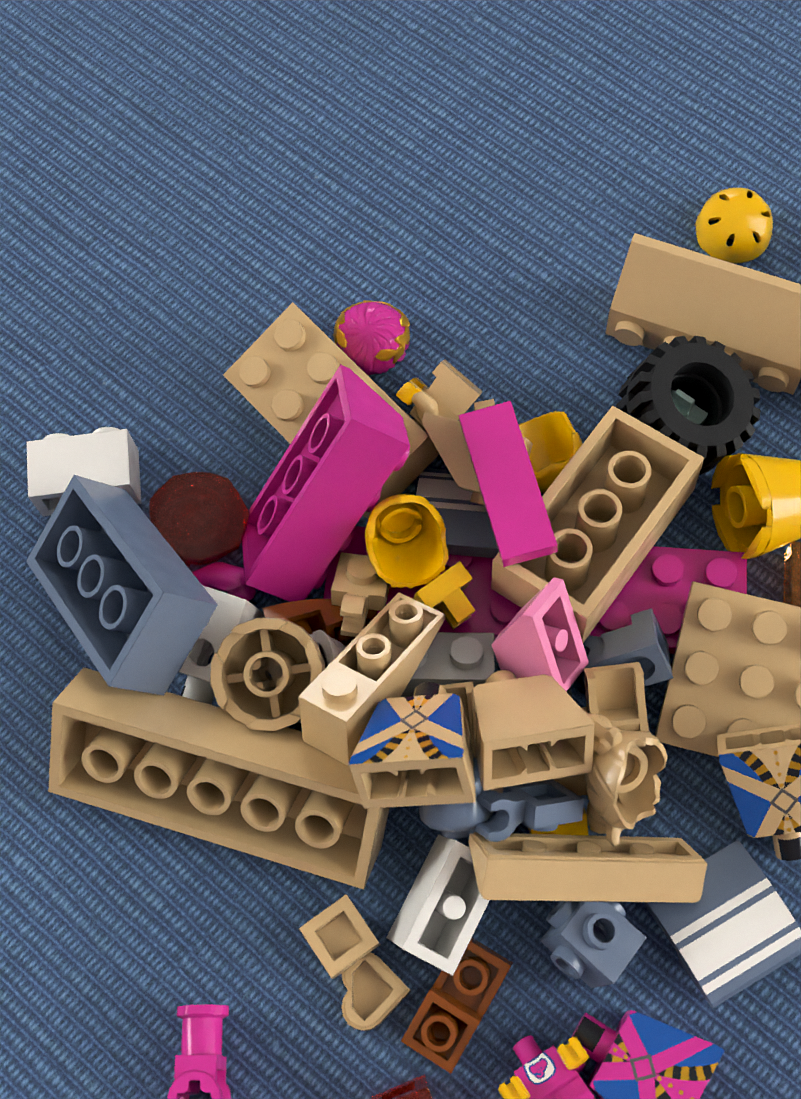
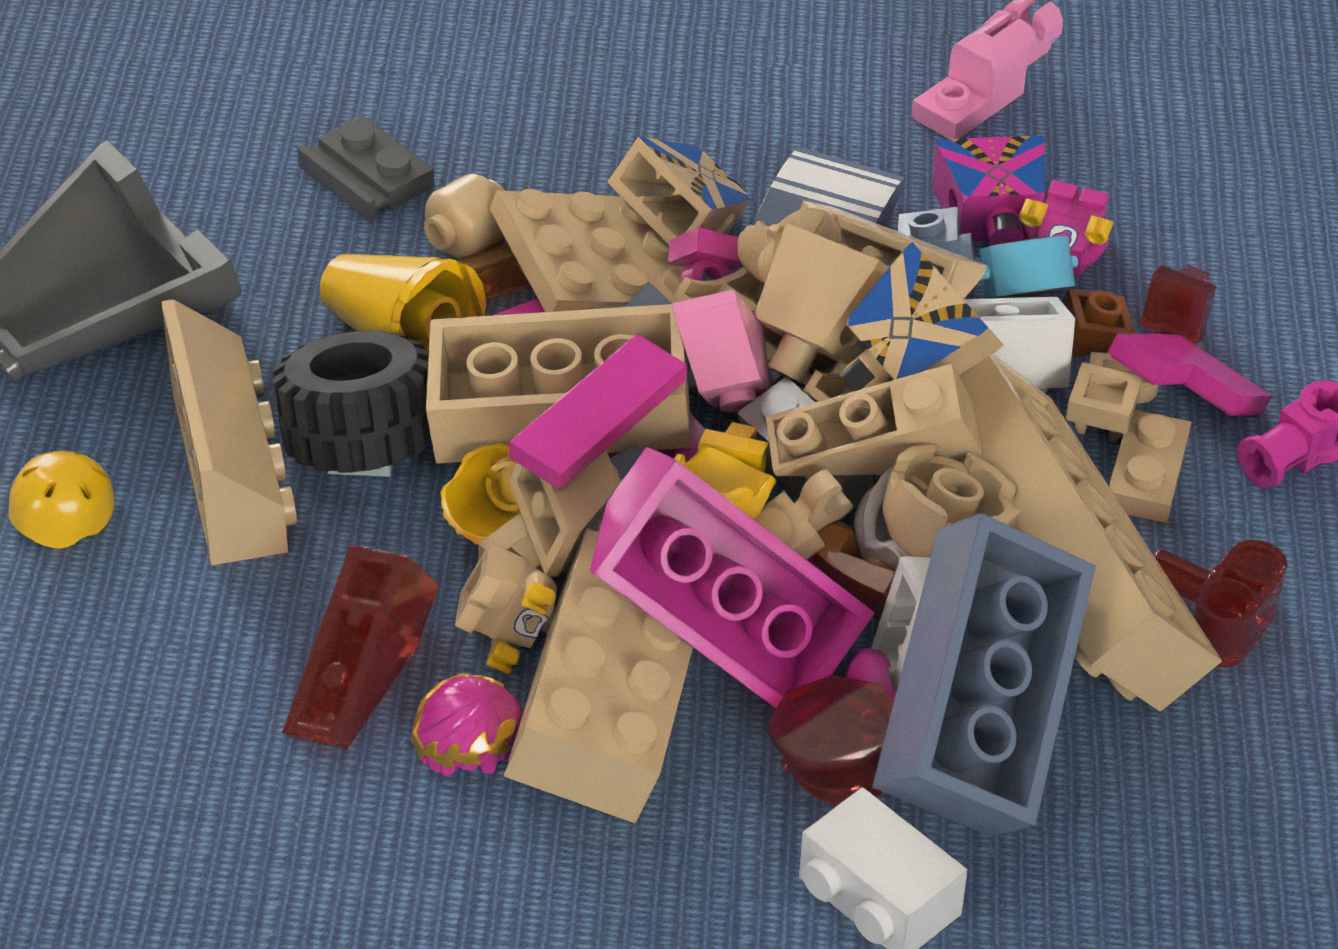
camera: 135 degrees left, 25 degrees down
(108, 858) = (1234, 598): none -> clear red beam
(272, 934) = (1150, 465): none -> tan plate
(336, 1050) = (1176, 361): none -> dark pink tile
(476, 310) = (361, 645): none -> clear red slope
(517, 998) = (1028, 267): none -> medium azure piece
(688, 738) = (704, 252): none -> dark pink tile

